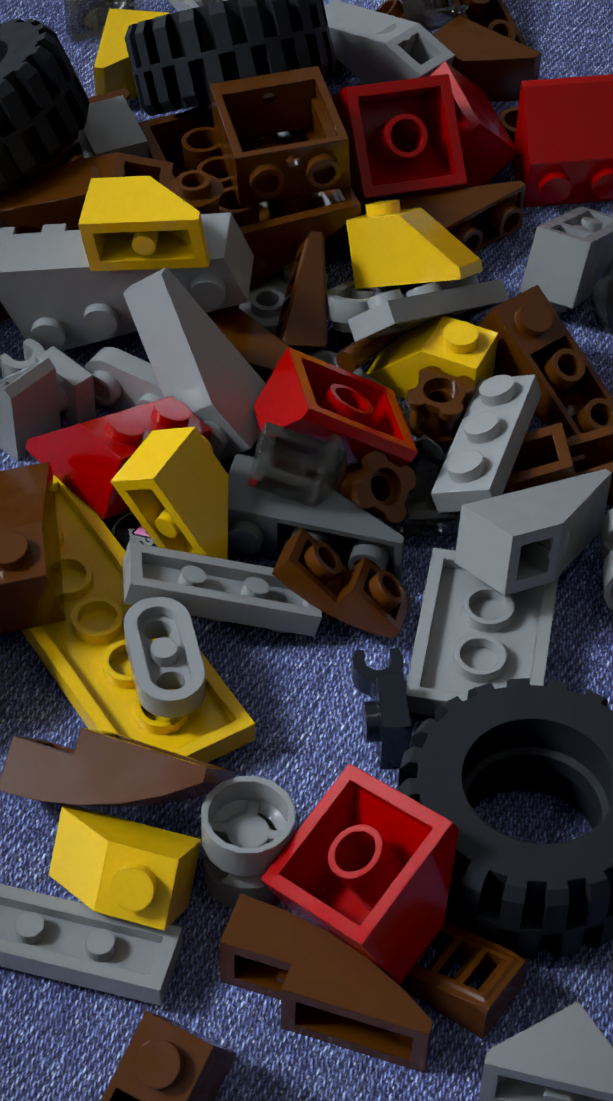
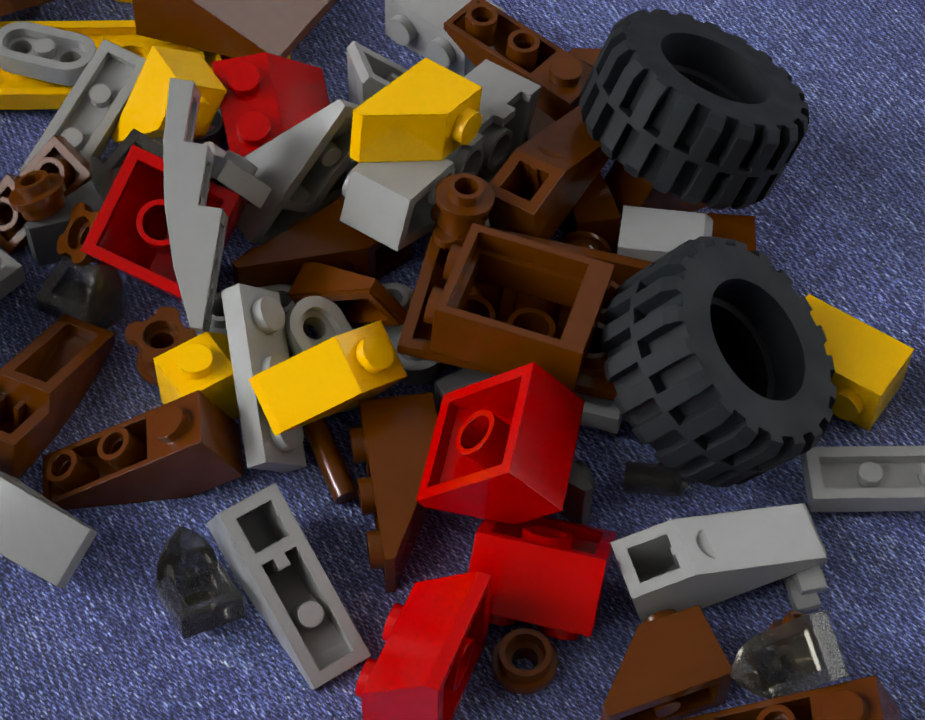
camera: 120 degrees right, 5 degrees up
(259, 384) = (238, 176): none -> light grey plate
(333, 349) = (193, 228): none -> light grey slope
(368, 551) = (38, 195): none -> reddish brown plate
(487, 441) = (81, 341): light grey plate -> none

